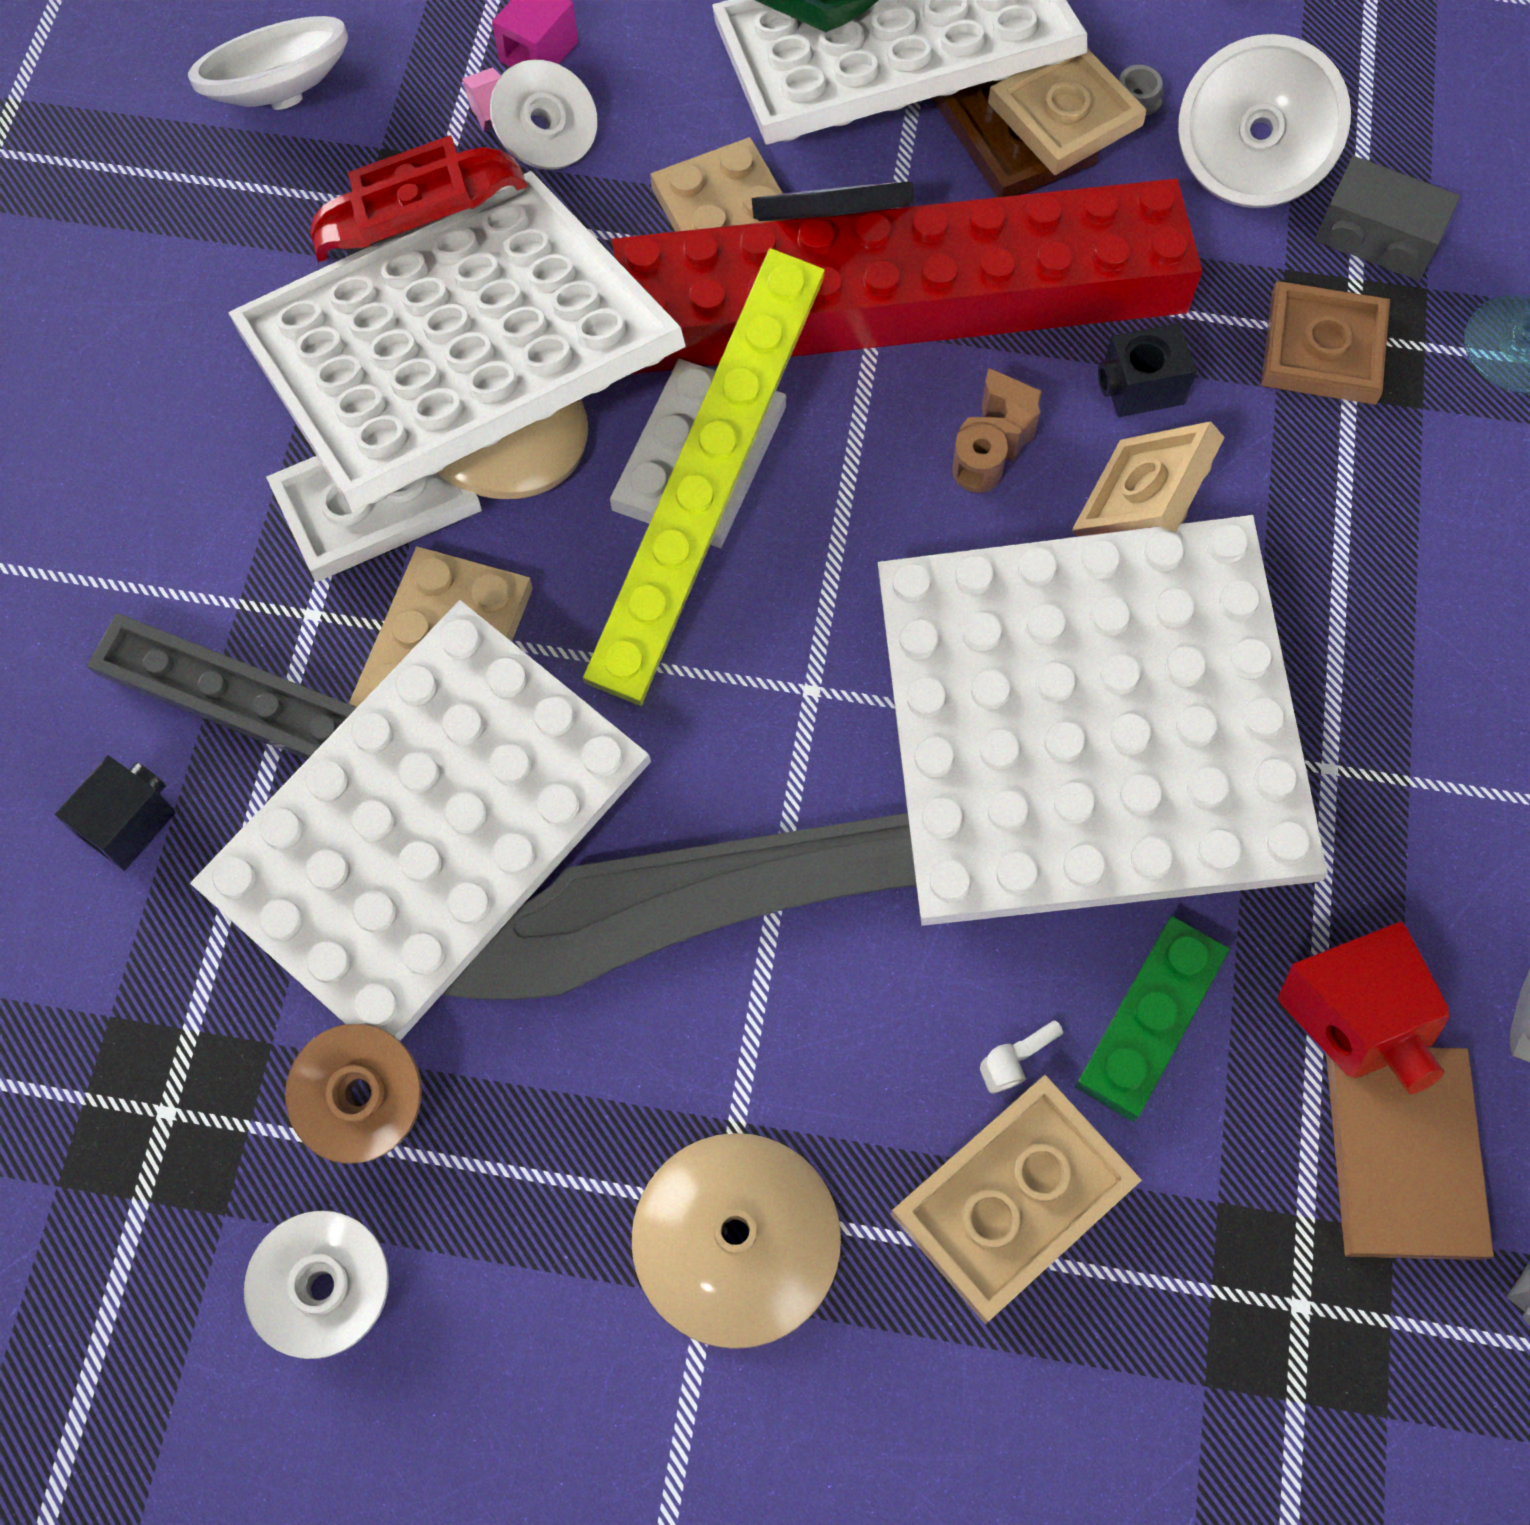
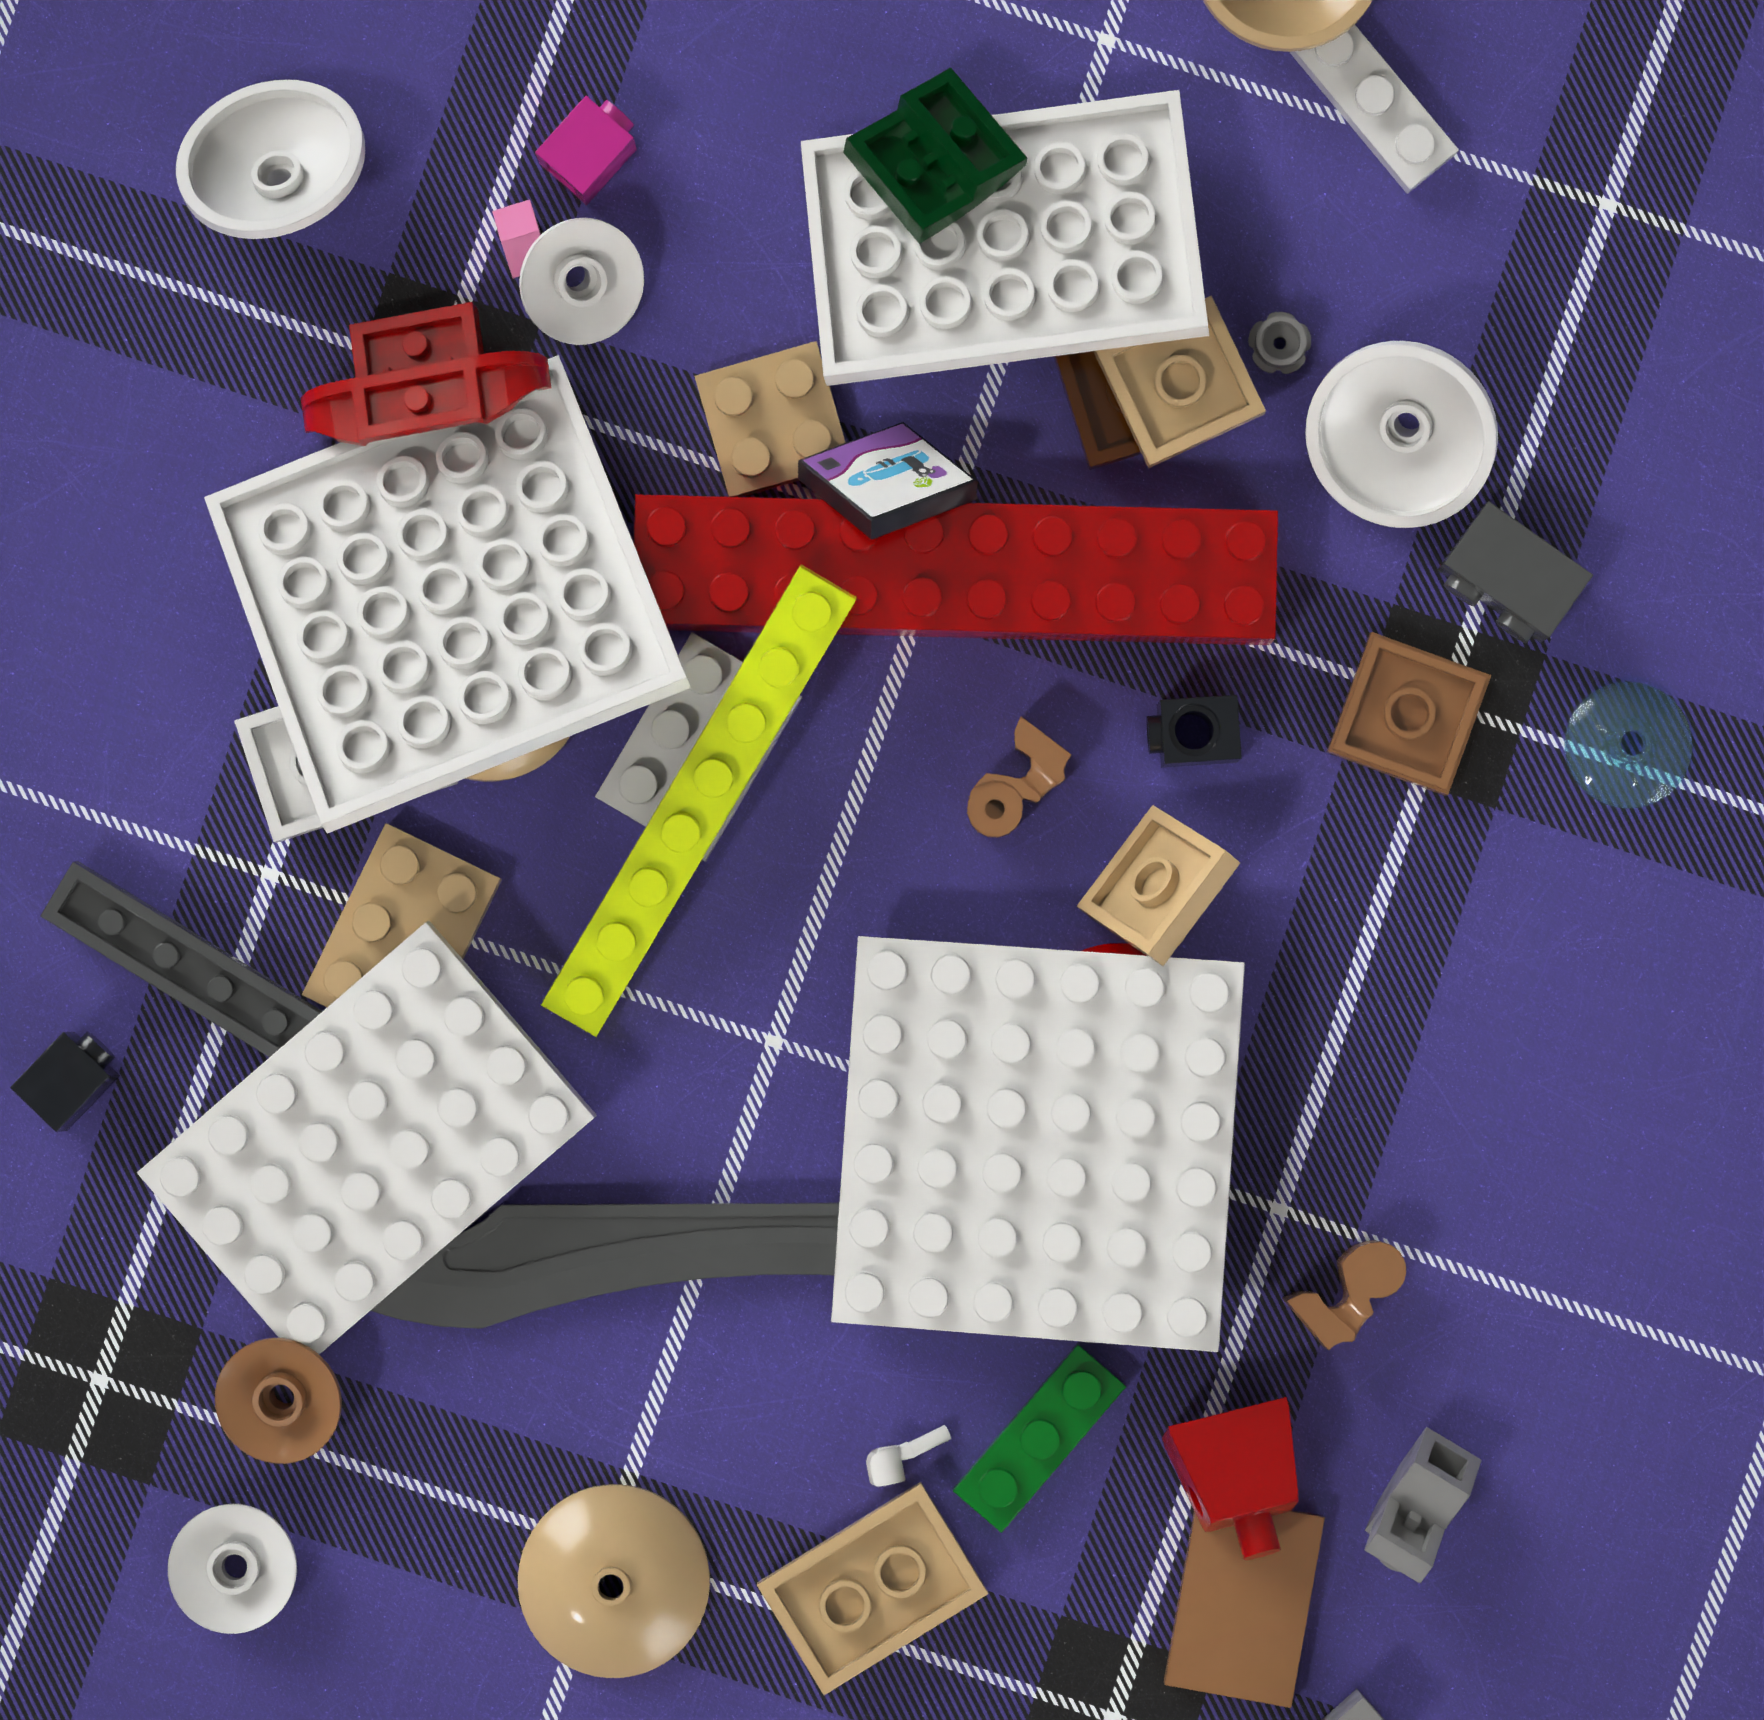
camera: 10 degrees right, 20 degrees up
(1431, 815) = (1365, 1272): none -> medium nougat leg

